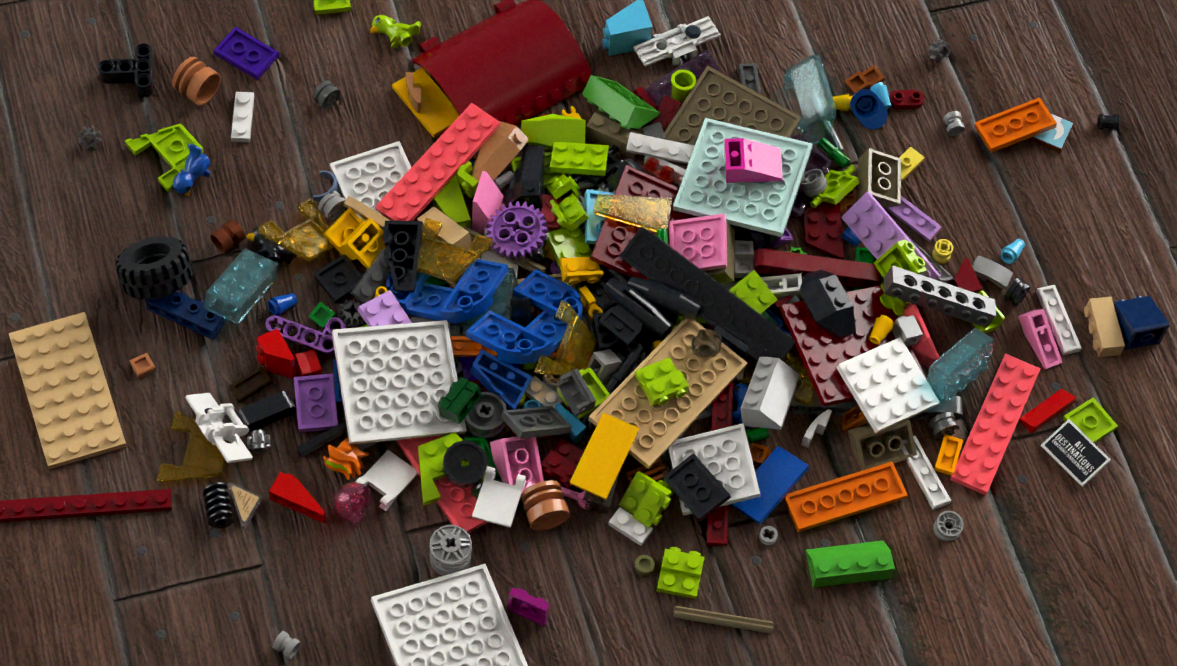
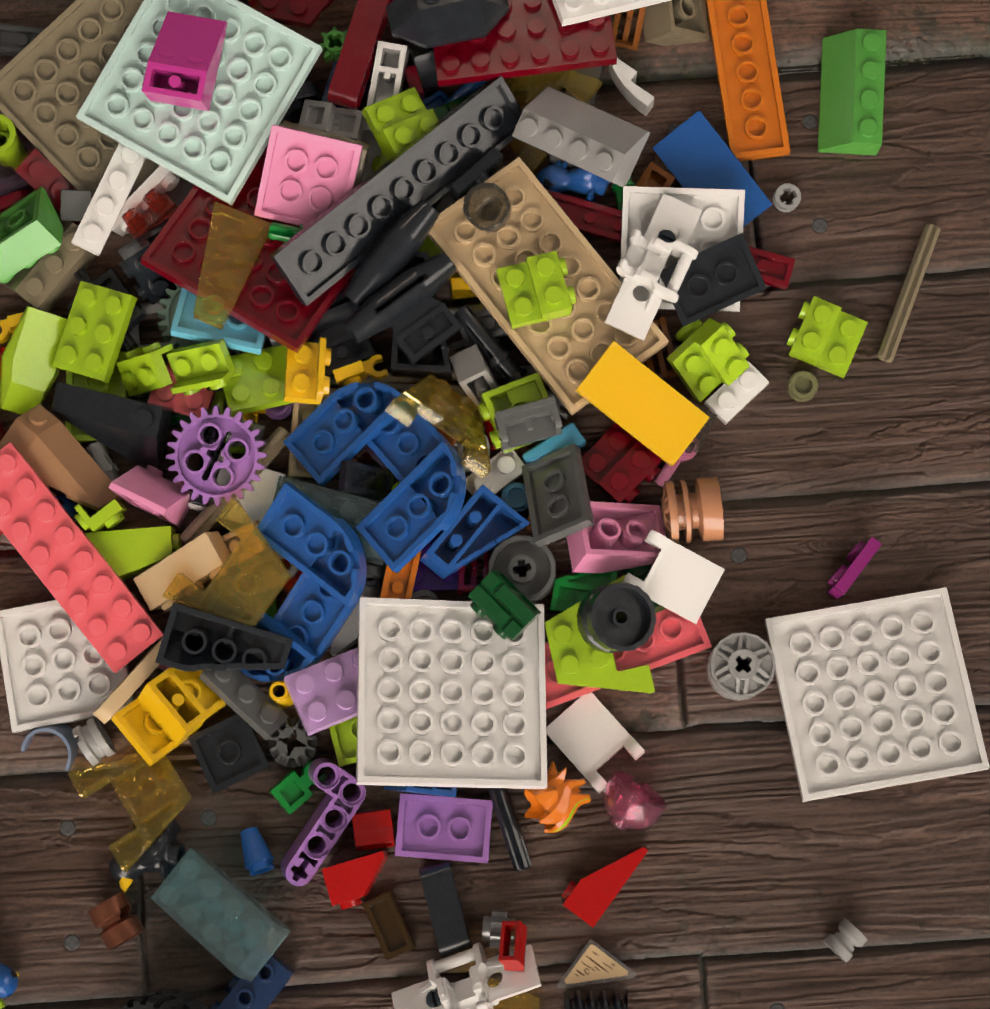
camera: 65 degrees left, 20 degrees up
(249, 442) = (519, 930): none -> red piece
(716, 451) = (645, 260): none -> white piece

